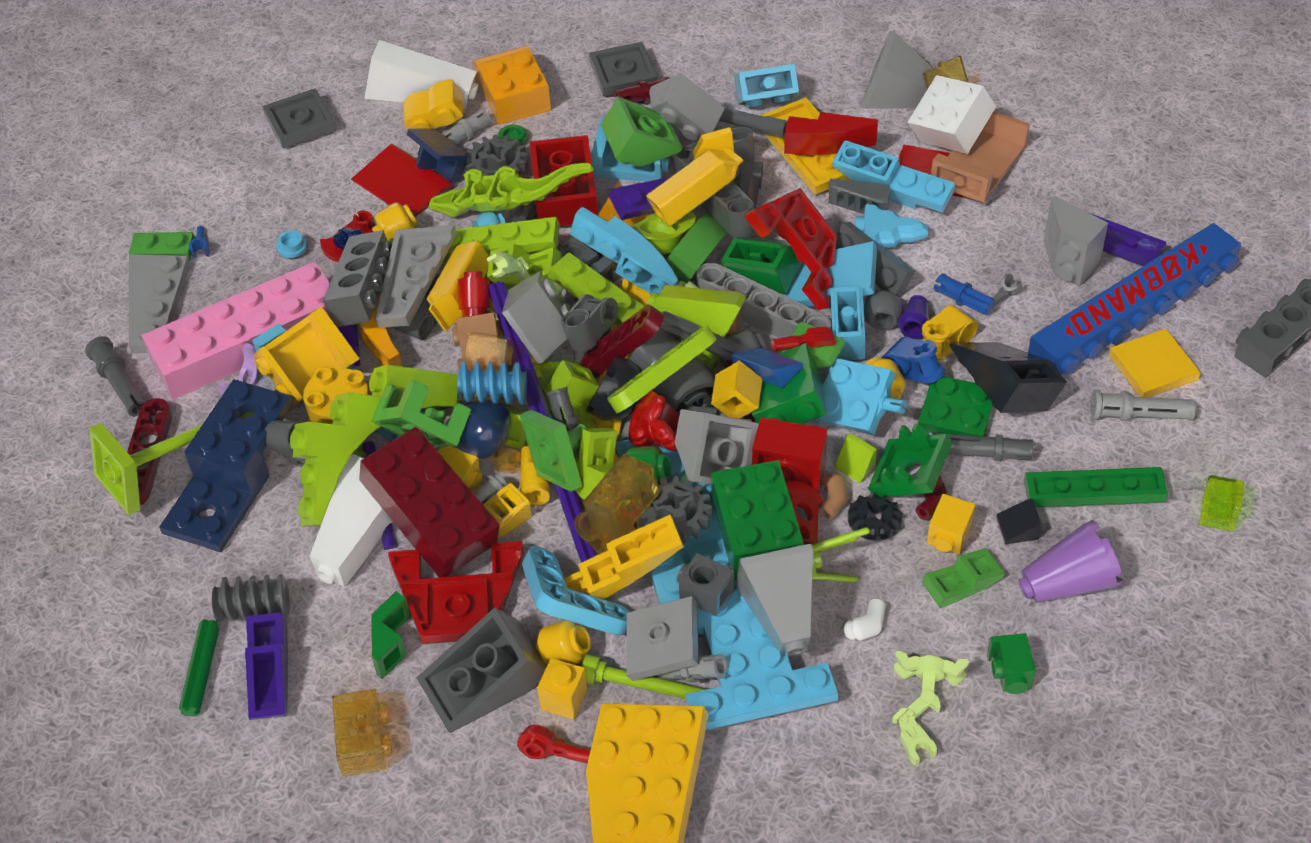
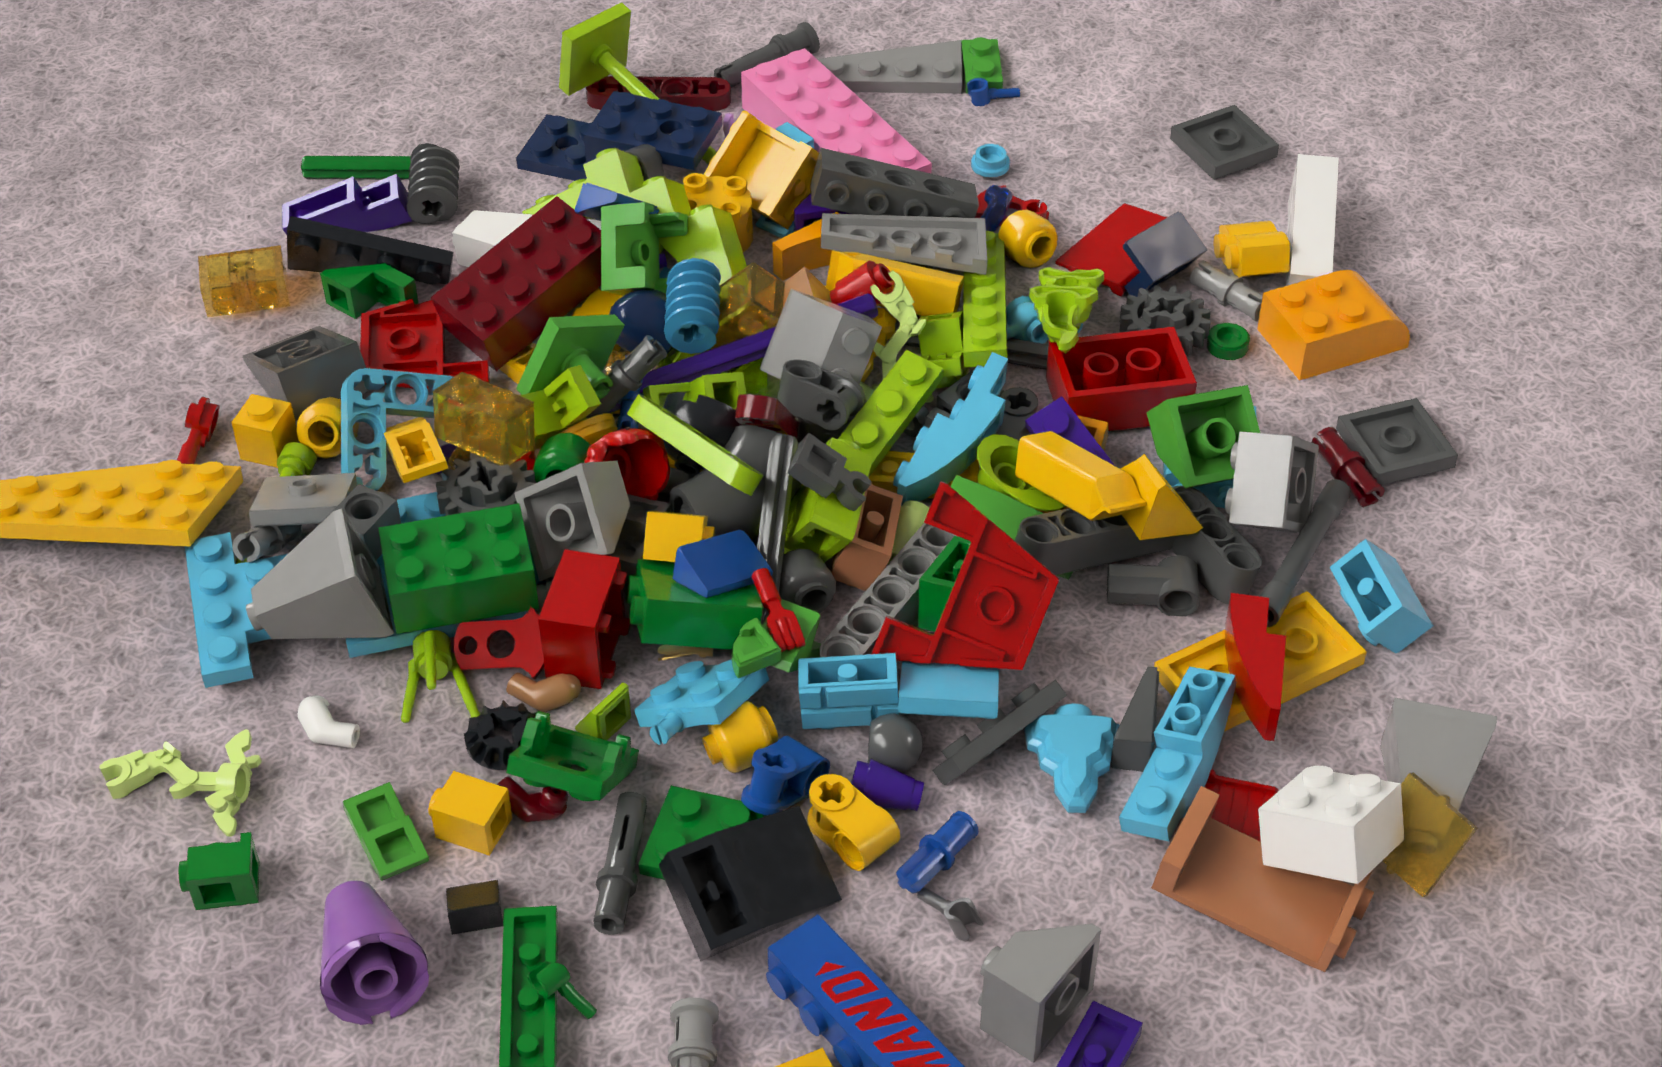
camera: 85 degrees right, 5 degrees down
(350, 638) = (324, 246): none -> black wing
(377, 424) = (593, 197): none -> slope
(702, 293) = (824, 472): none -> dark grey plate
(836, 353) = (754, 649): none -> bright green tile
(1089, 467) = (551, 977): none -> green hand

